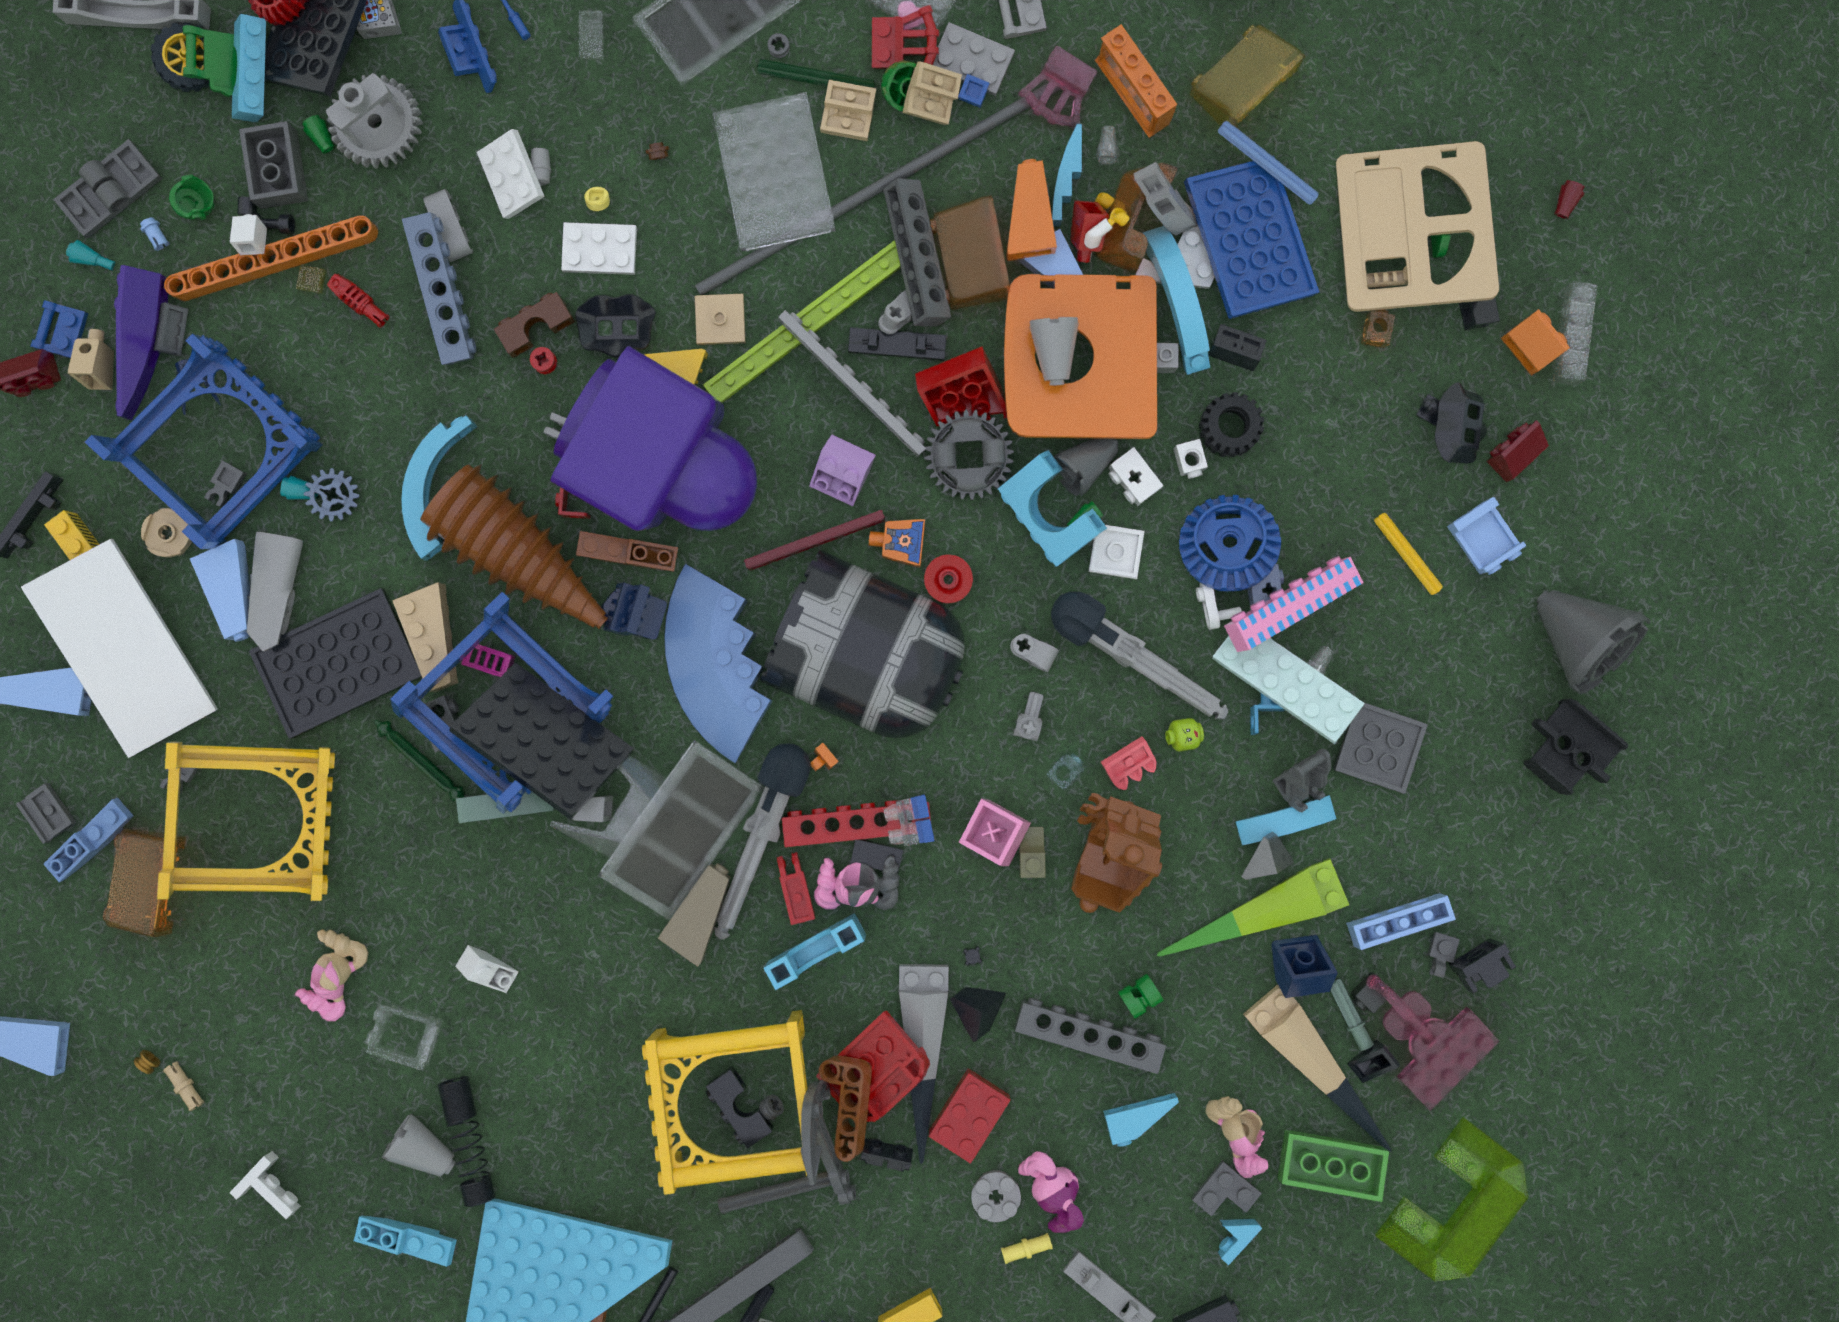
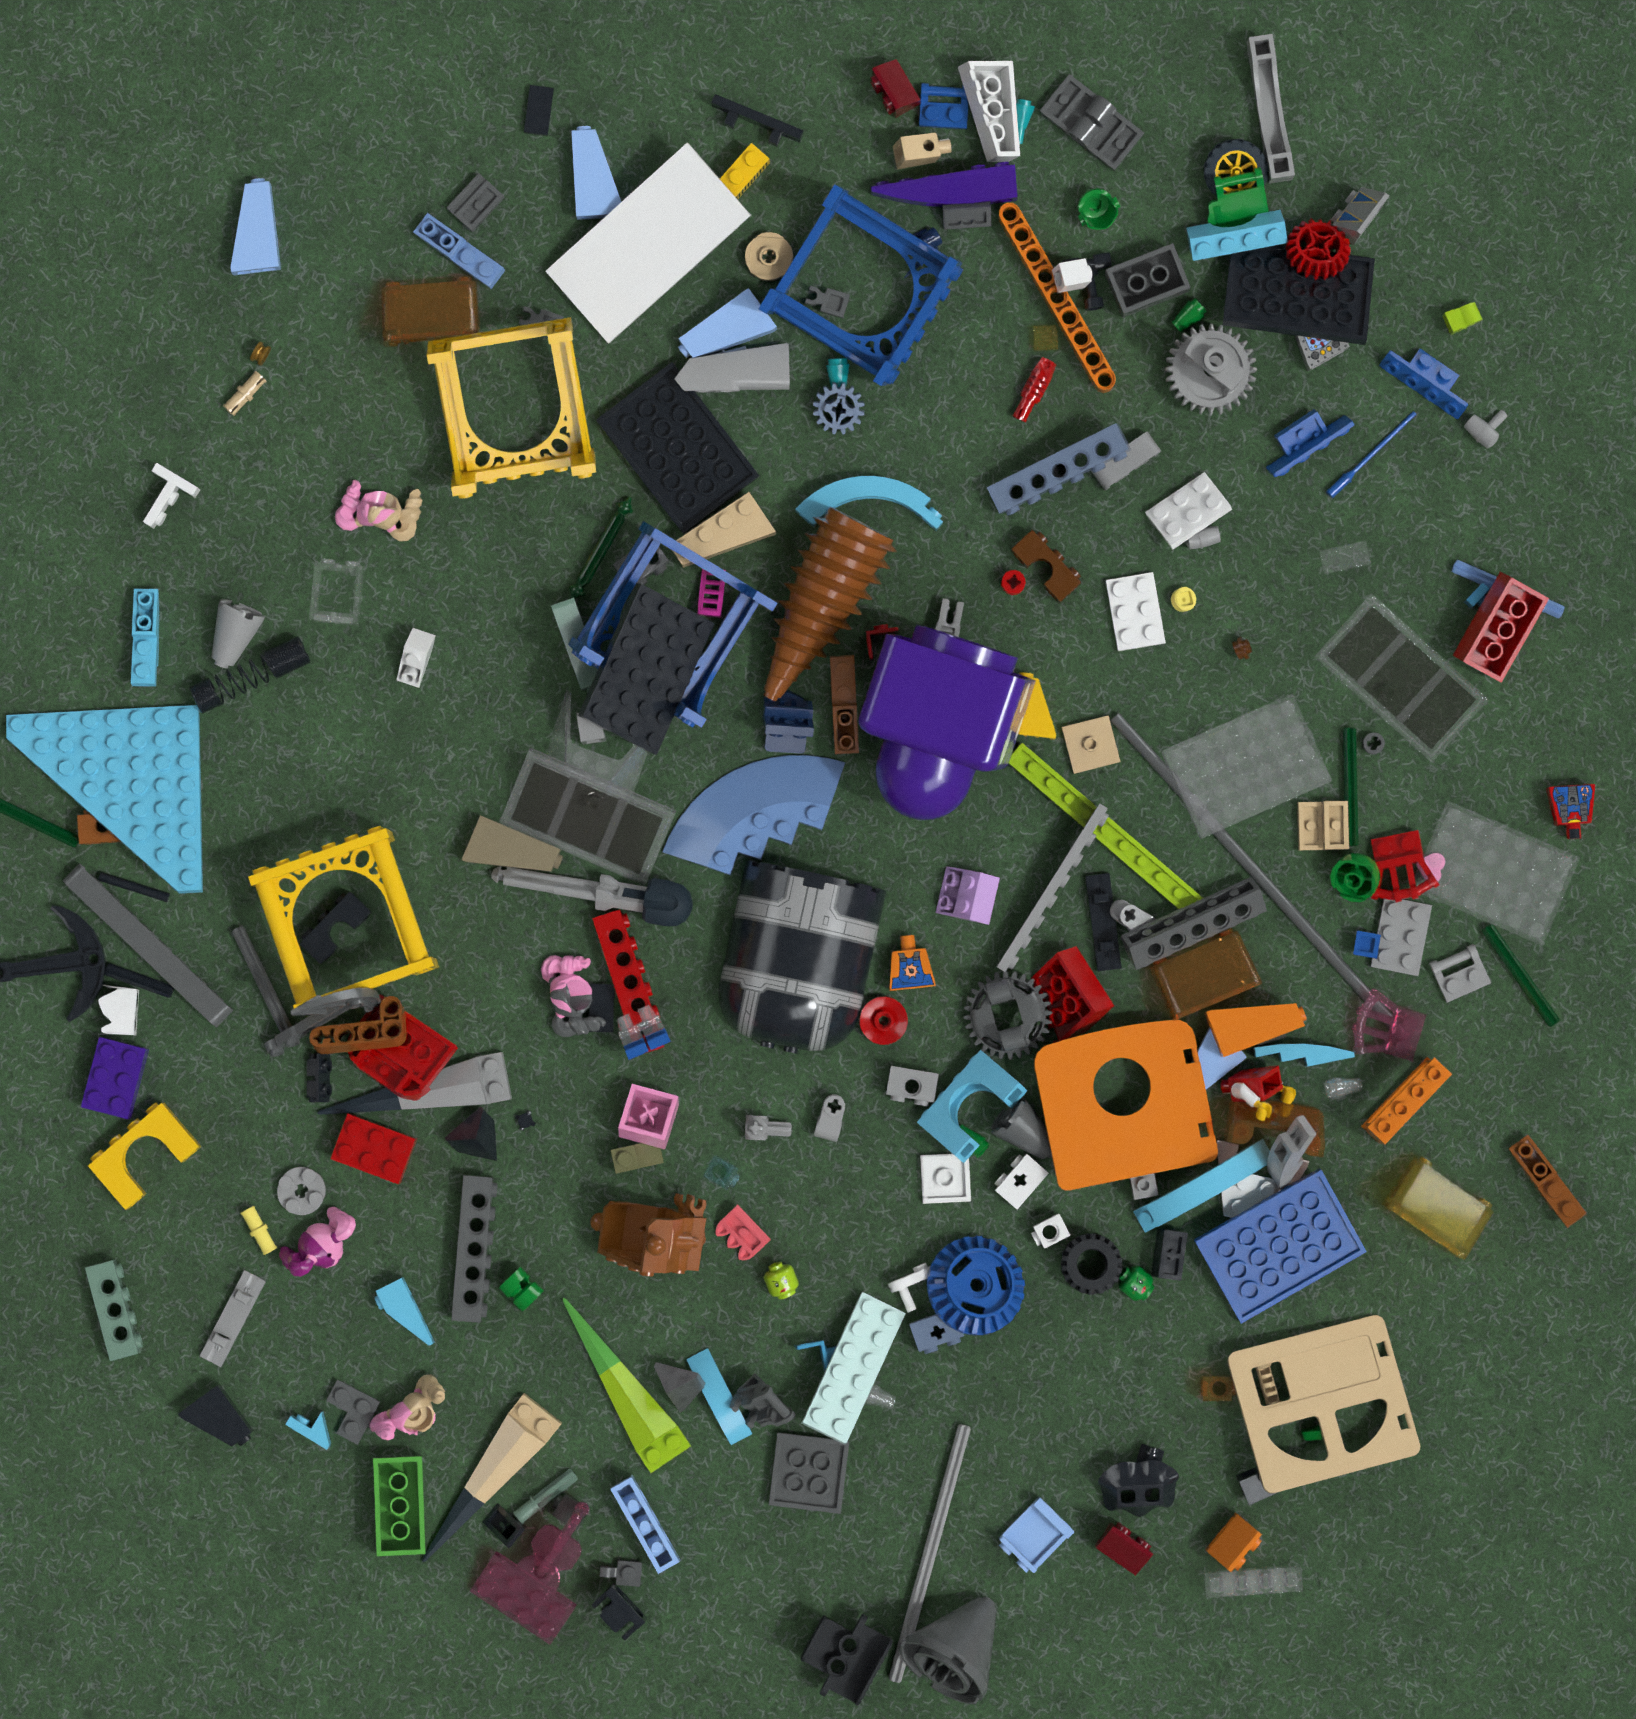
camera: 75 degrees right, 0 degrees up
(62, 278) = (993, 107): none -> white wedge
(151, 228) = (1057, 177): light blue pin -> none
(616, 310) = (1045, 650): black piece -> none
(771, 1107) = (341, 958): dark grey bush -> none
(796, 891) = (551, 937): red hinge -> none
(797, 959) = (500, 967): medium azure arch -> none
(814, 540) = (893, 883): dark red tile -> none
(824, 757) = (686, 937): orange tile -> none
(932, 93) = (1353, 904): tan slope -> none
(1018, 549) = (926, 1080): none -> light grey brick
(1055, 346) = (1124, 1075): light grey cone -> none
(1082, 620) = (870, 1157): piece -> none
(1259, 385) = (1136, 1283): none -> green head
(1268, 162) = (1356, 1246): medium blue axle -> none
(1293, 604) = (928, 1358): bright pink brick -> none
(1302, 966) = (582, 1438): dark blue slope -> none
(1408, 553) = (1003, 1463): yellow axle -> none
(1478, 1221) = (372, 1659): clear neon green slope -> none
(1480, 643) = (931, 1546): none -> light grey axle
(1569, 197) = (1386, 1550): dark red cone -> none

